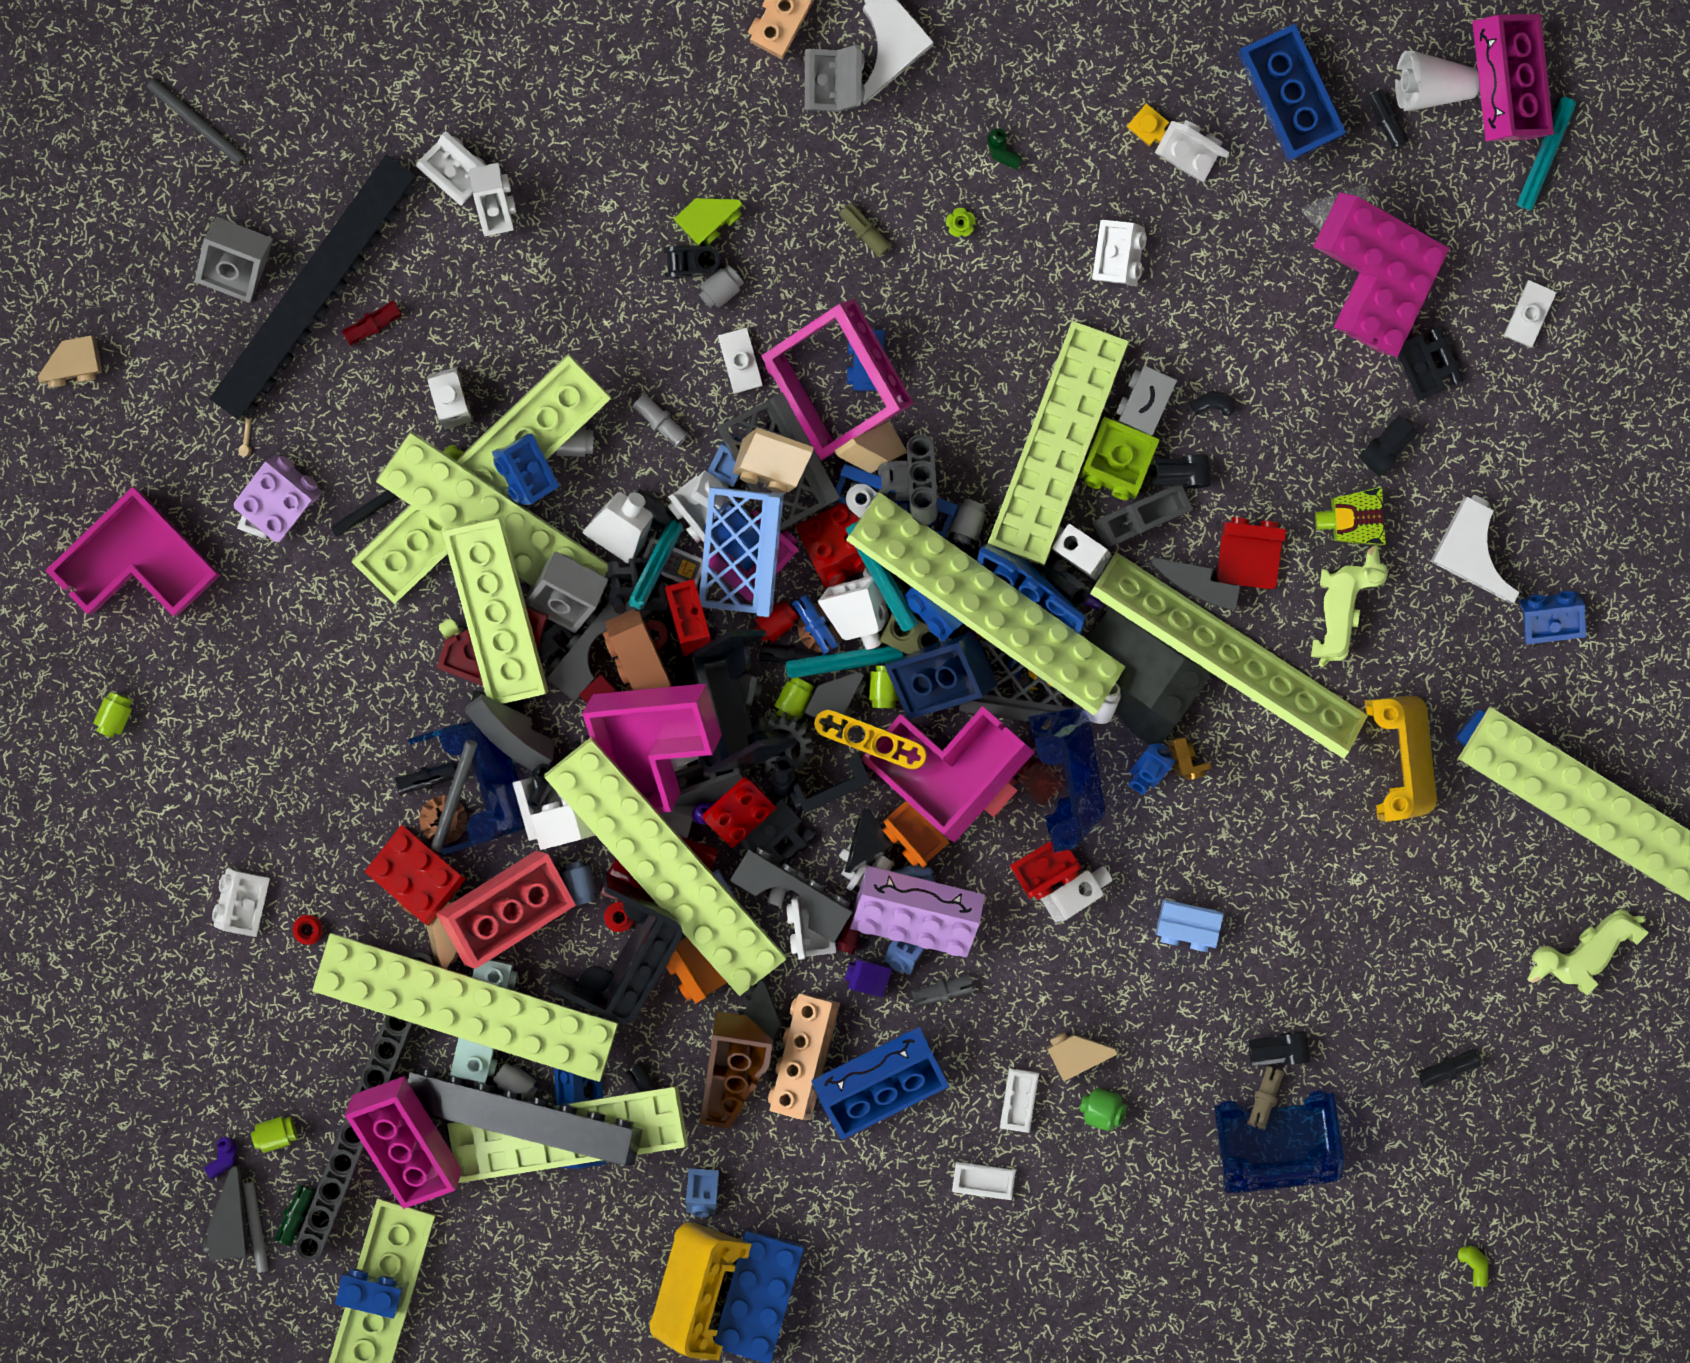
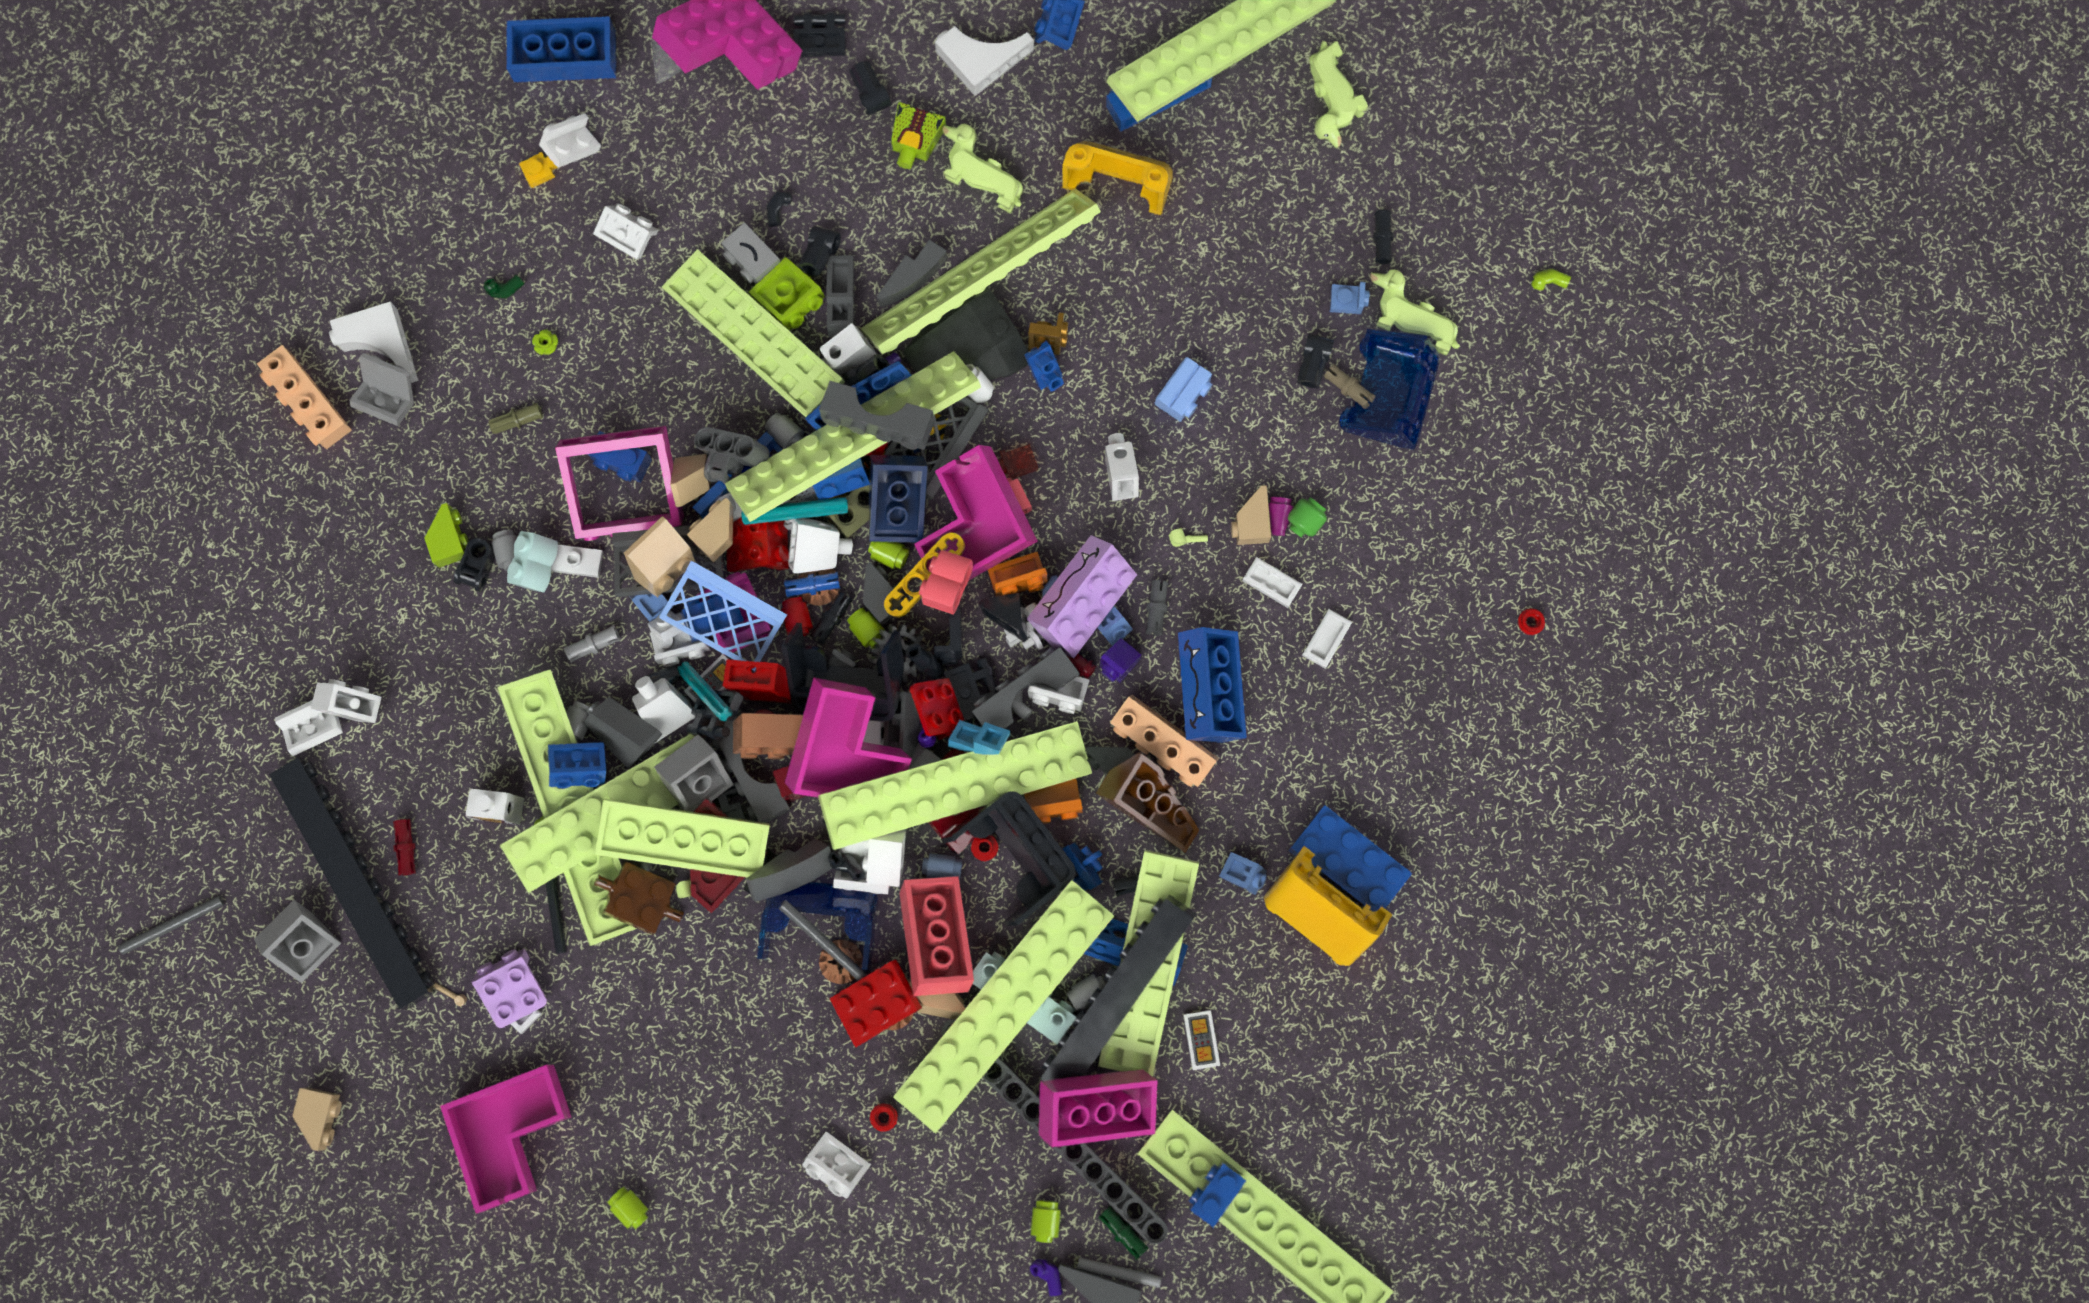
camera: 65 degrees left, 10 degrees down
(419, 589) = (639, 898): none -> reddish brown plate
(426, 778) = (796, 979): black pin -> none
(516, 1216) = (1201, 1040): none -> tile
(580, 496) = (621, 731): none -> dark grey slope
(642, 1028) = (1085, 865): none -> blue hips
(718, 321) = (532, 561): none -> light aqua brick
(721, 872) = (984, 740): none -> dark azure slope
(824, 502) = (715, 531): none -> tan slope
(841, 661) = (851, 576): teal axle -> none
(868, 769) = (946, 582): none -> coral brick
(1012, 664) = (907, 426): none -> dark grey arch
(1026, 983) = (1178, 538): none -> yellowish green hand
(1043, 869) = (1089, 482): red bracket -> none
(1069, 740) = (992, 416): clear blue windscreen -> none
(1097, 1077) = (1278, 513): none -> magenta cone
(1250, 553) = (905, 223): red bracket -> none
(1364, 1058) = (1349, 298): none -> medium blue bracket
(1368, 1133) = (1412, 317): none -> yellowish green animal

